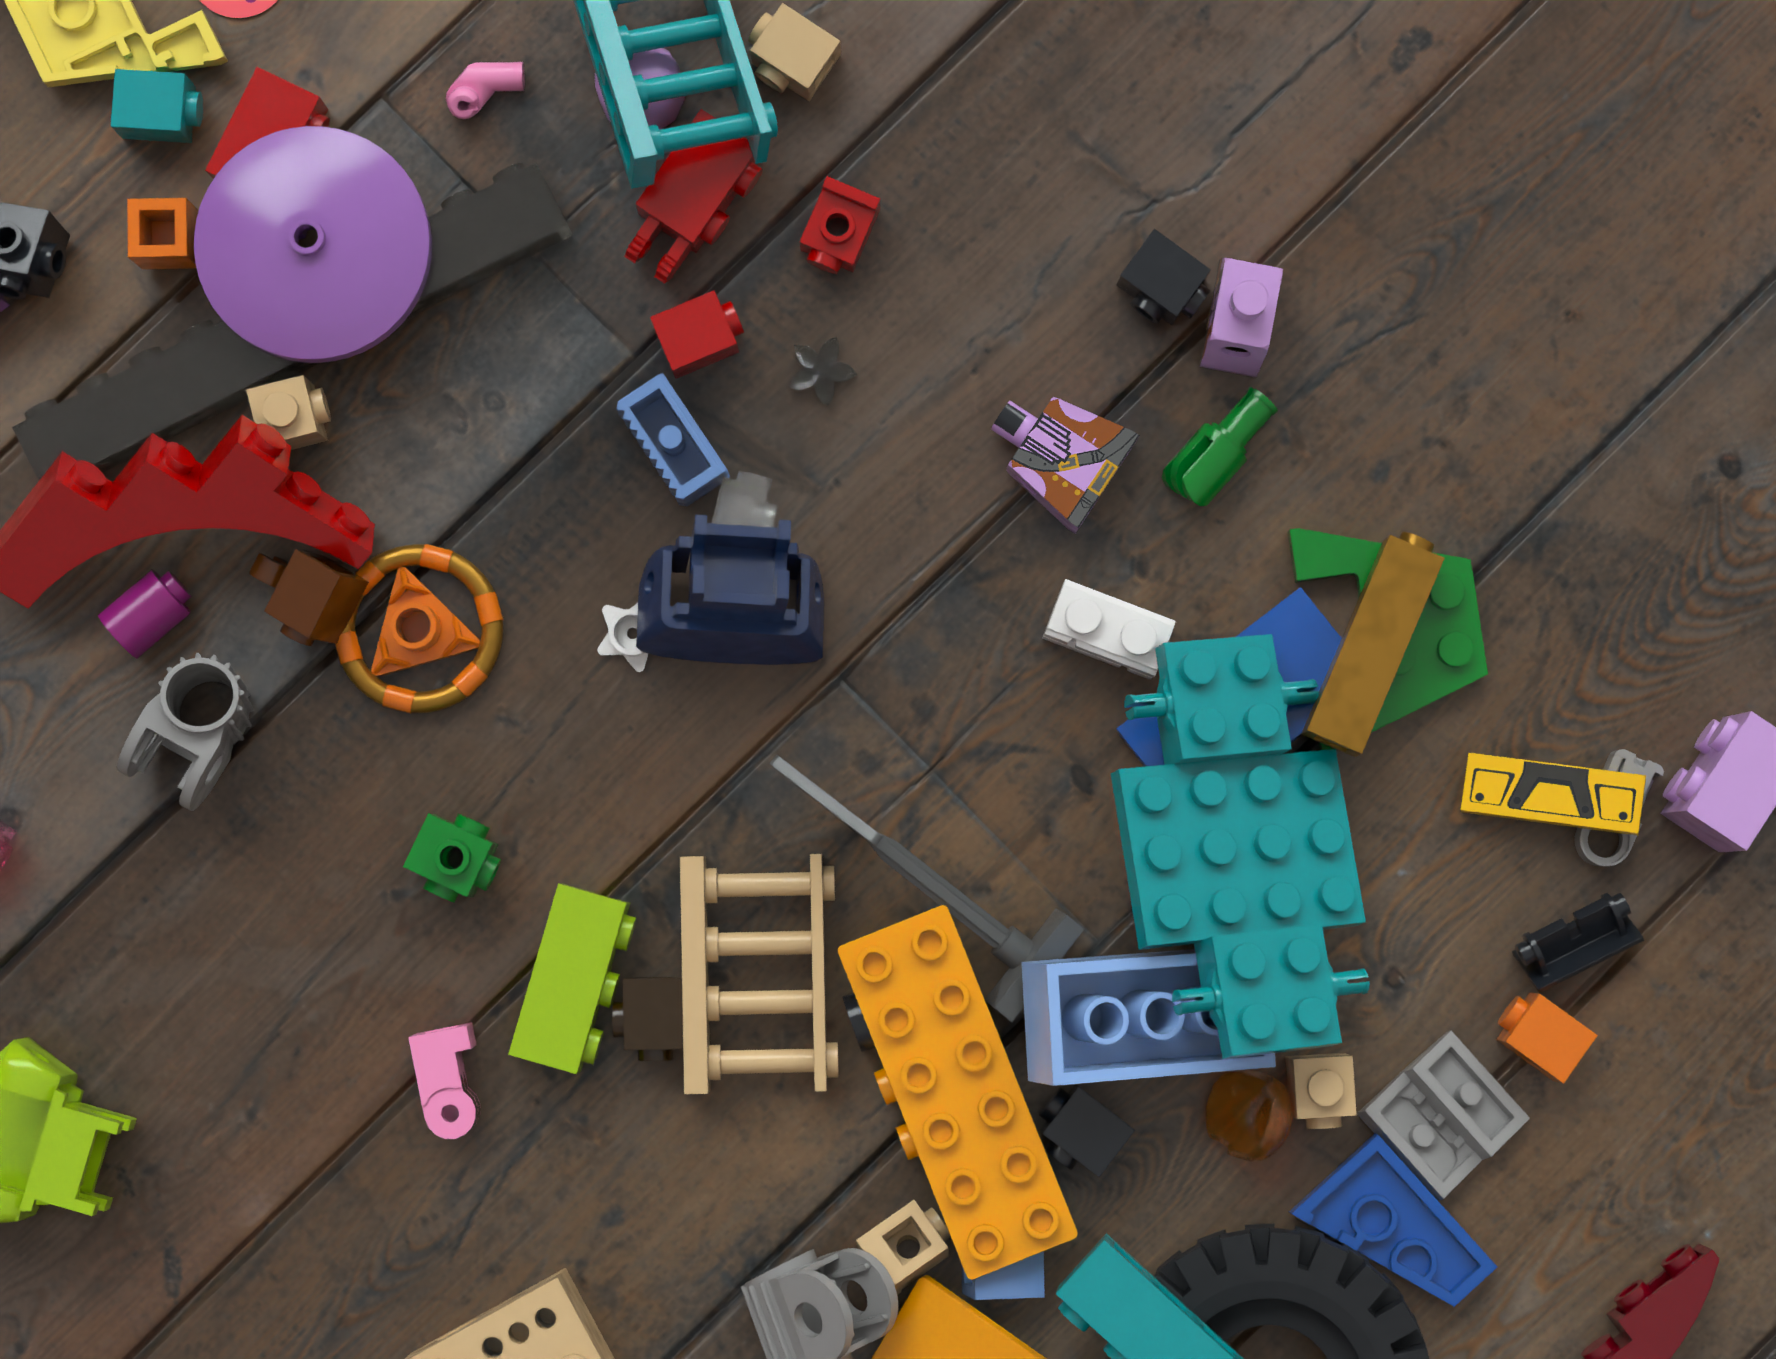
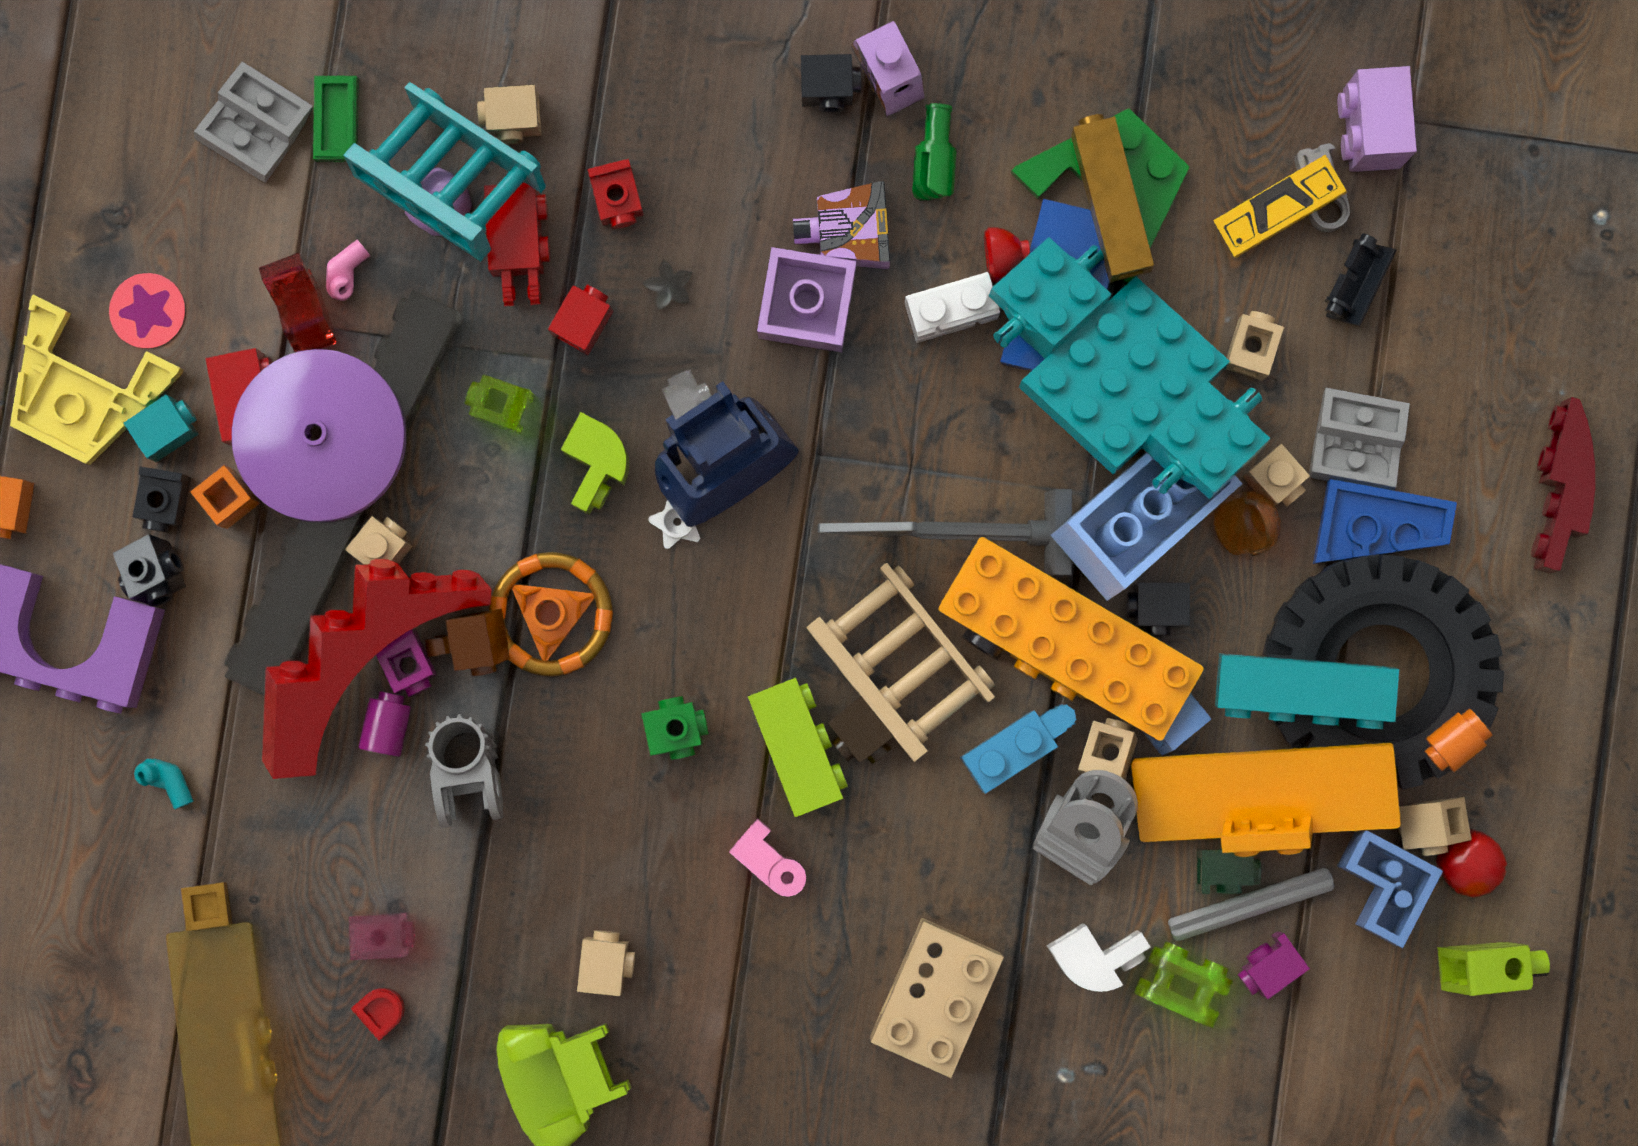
camera: 30 degrees left, 0 degrees up
(115, 182) = (175, 492): none -> black brick
(182, 1054) = (604, 964): none -> tan brick
(205, 549) = (391, 662): none -> magenta brick
(405, 86) = (298, 303): none -> clear red brick
(549, 373) = (513, 408): none -> clear neon green window
(608, 500) = (604, 453): none -> lime brick
(672, 440) = (615, 390): medium blue brick -> none
(809, 1163) = (1017, 746): none -> dark azure hinge
(956, 500) = (806, 299): none -> lavender brick
(1210, 613) = (1003, 252): none -> red brick
(1432, 924) = (1262, 328): none -> tan brick
(1544, 1036) = (1382, 349): orange brick -> none

